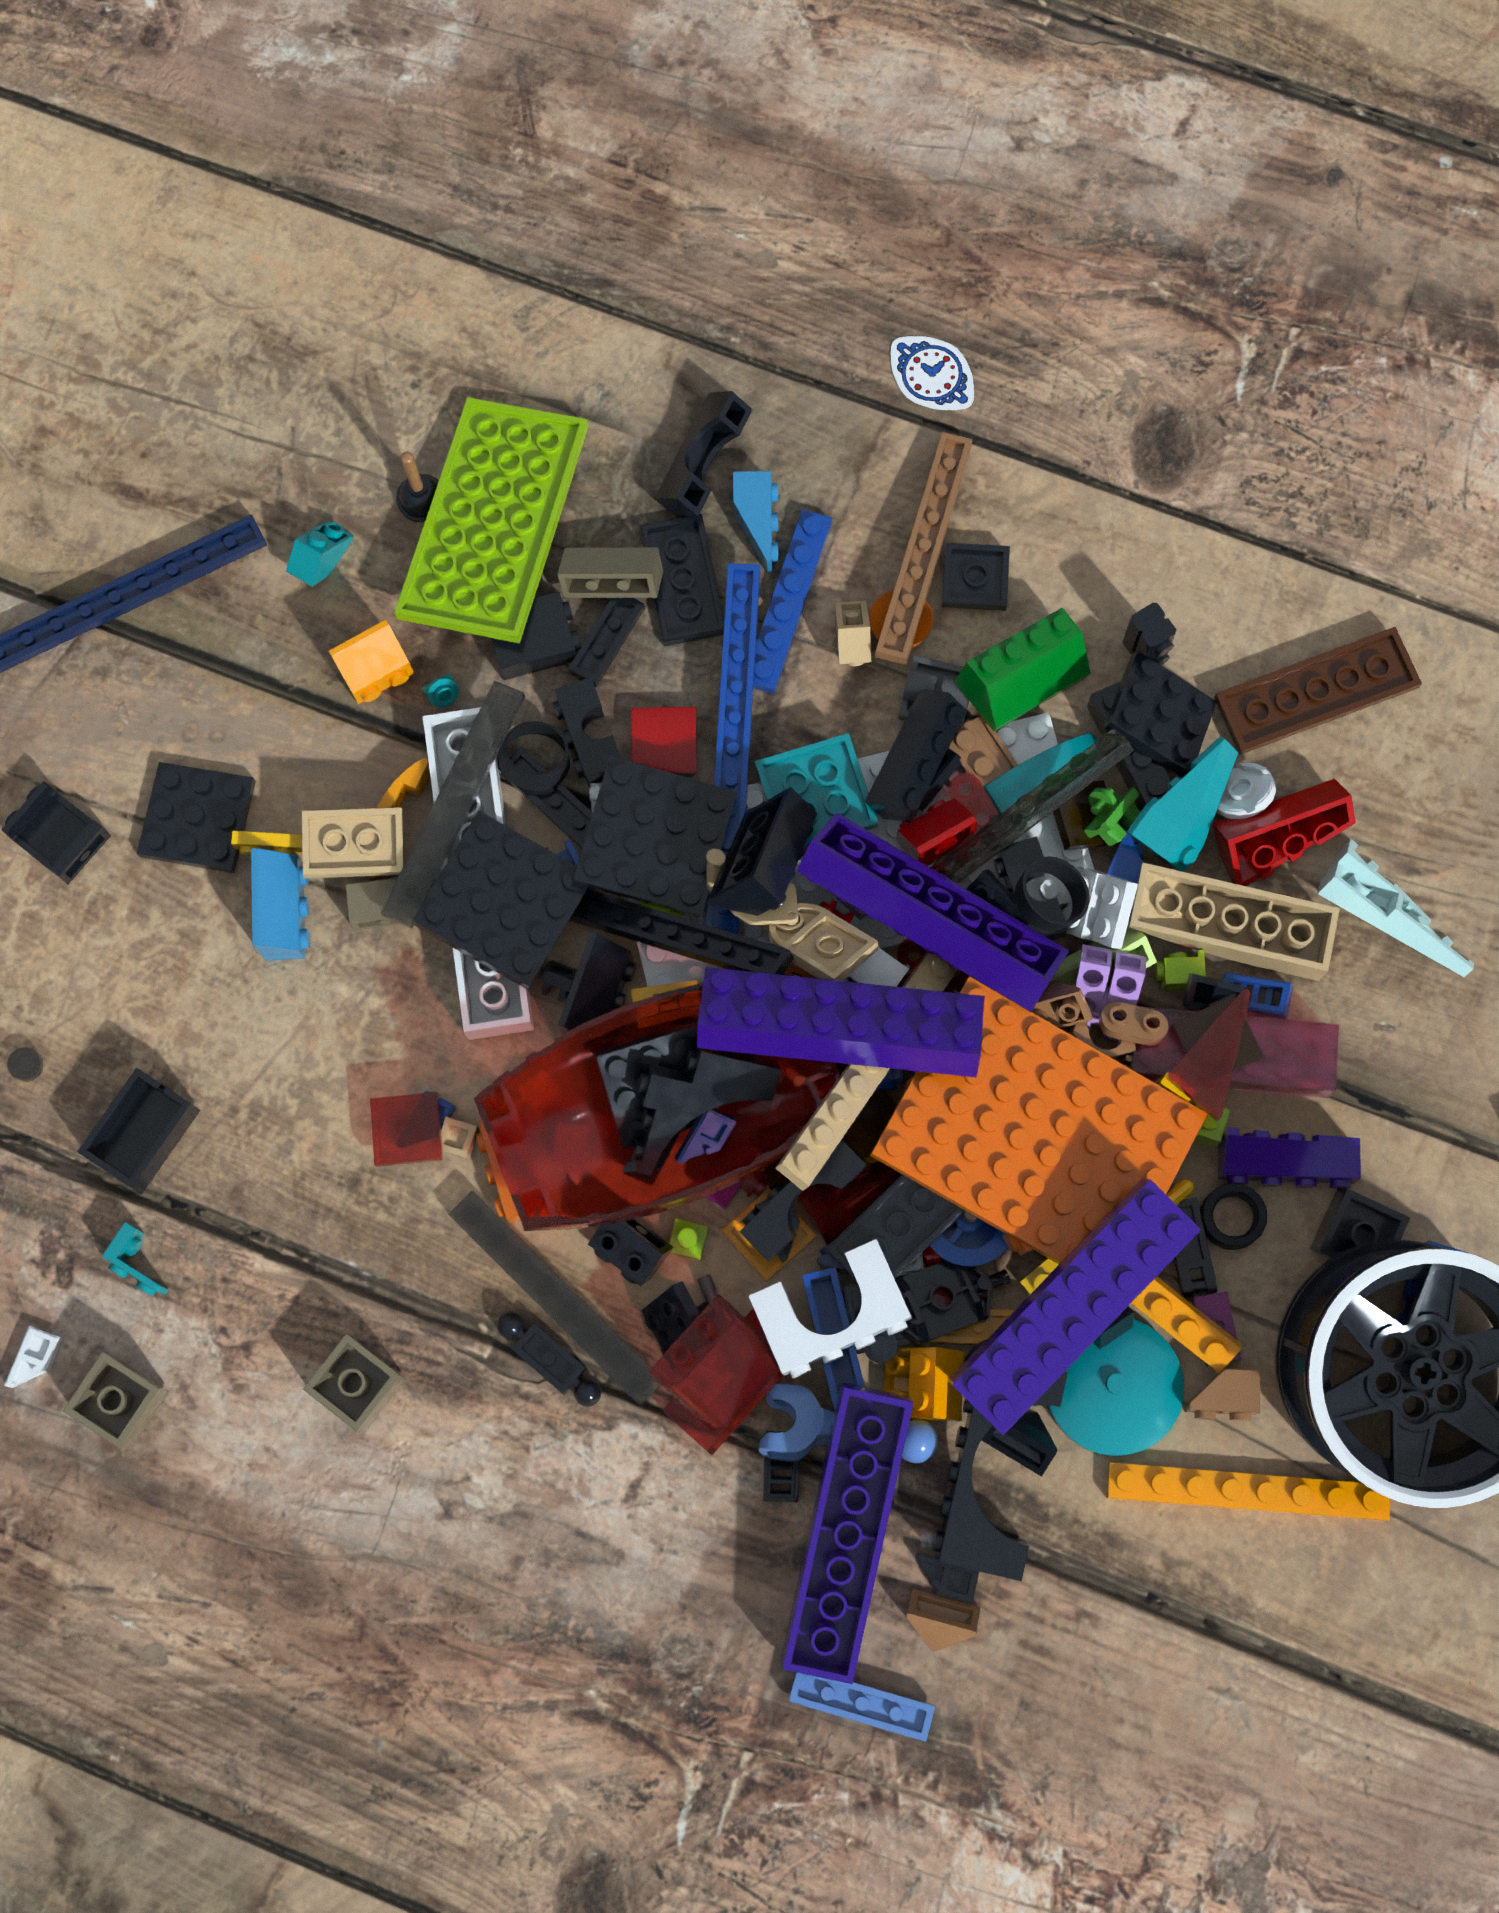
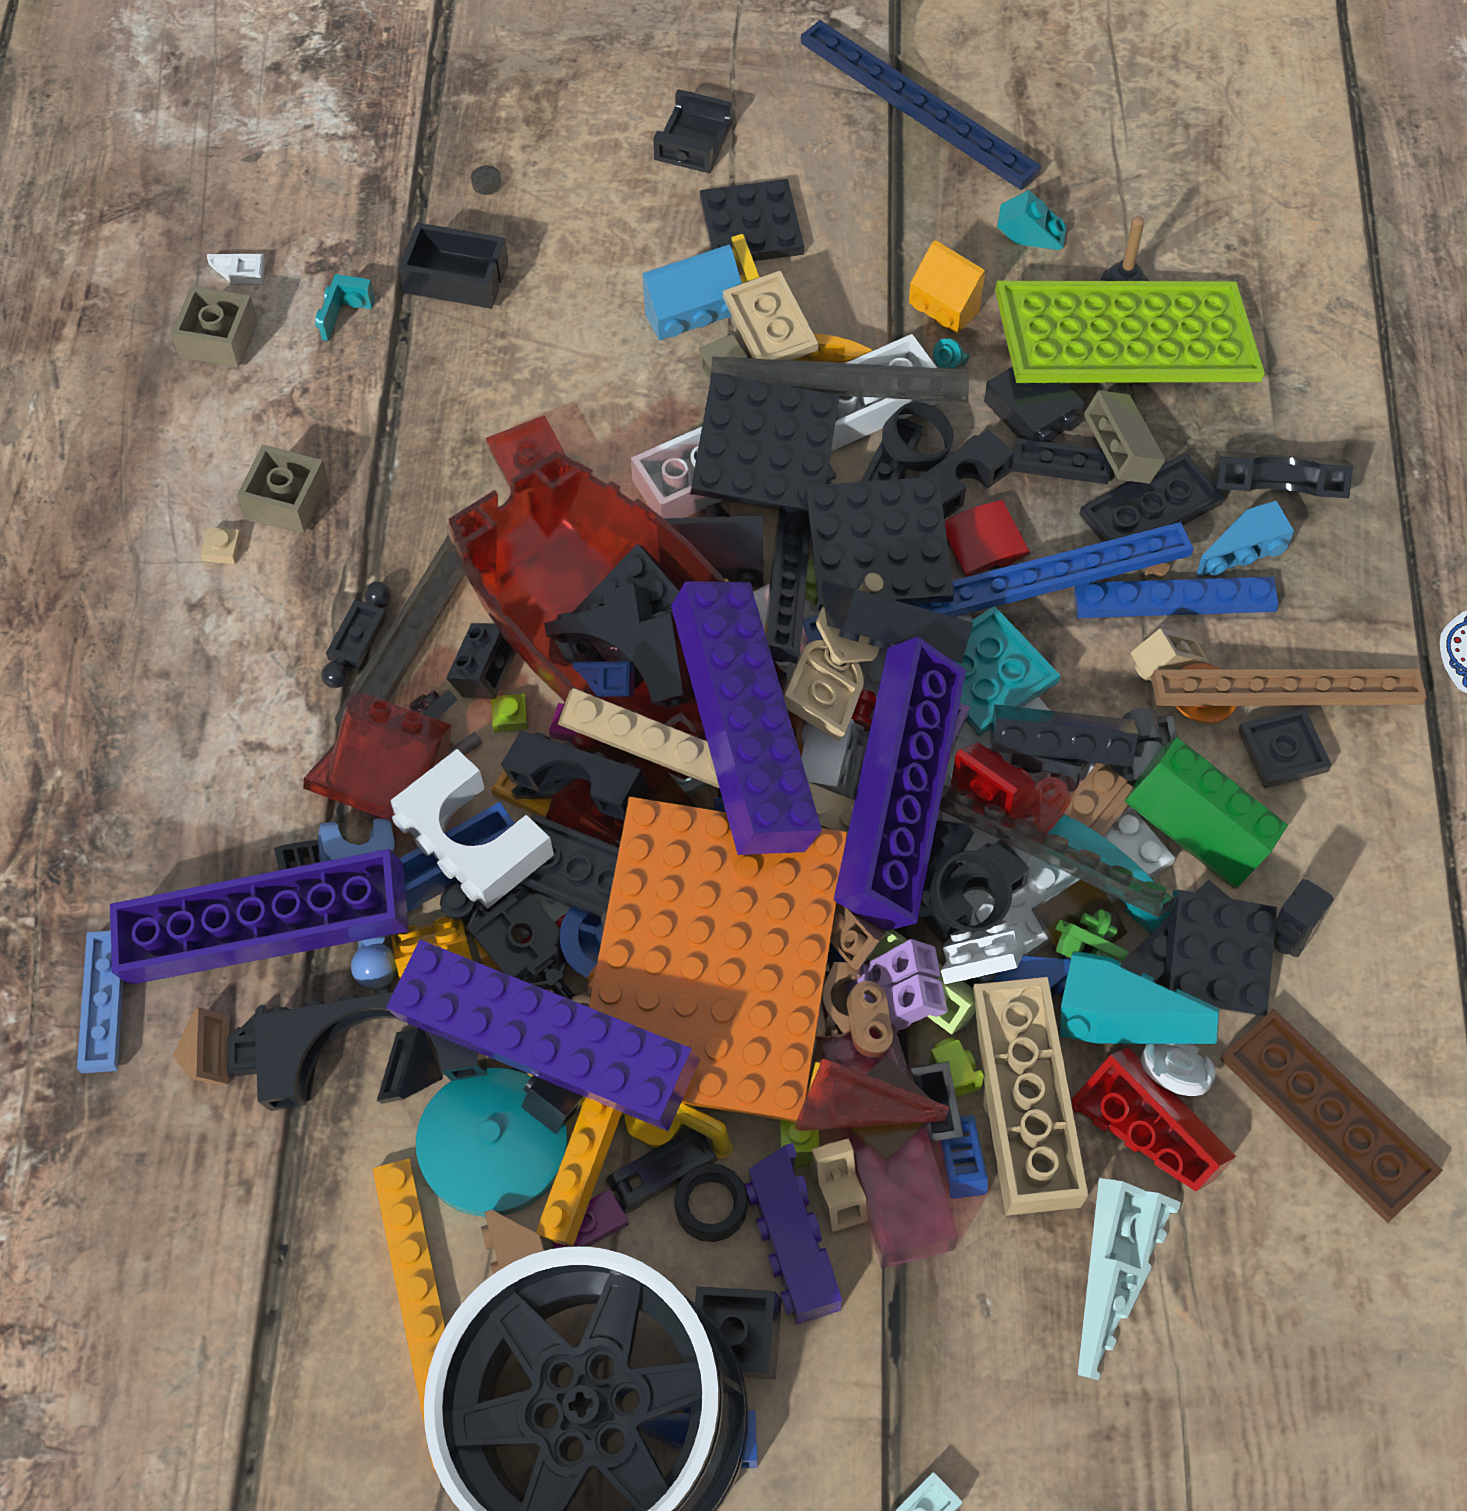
camera: 65 degrees right, 15 degrees down
(388, 1466) = (221, 545): none -> tan plate
(1258, 1105) = (838, 1185): none -> tan brick

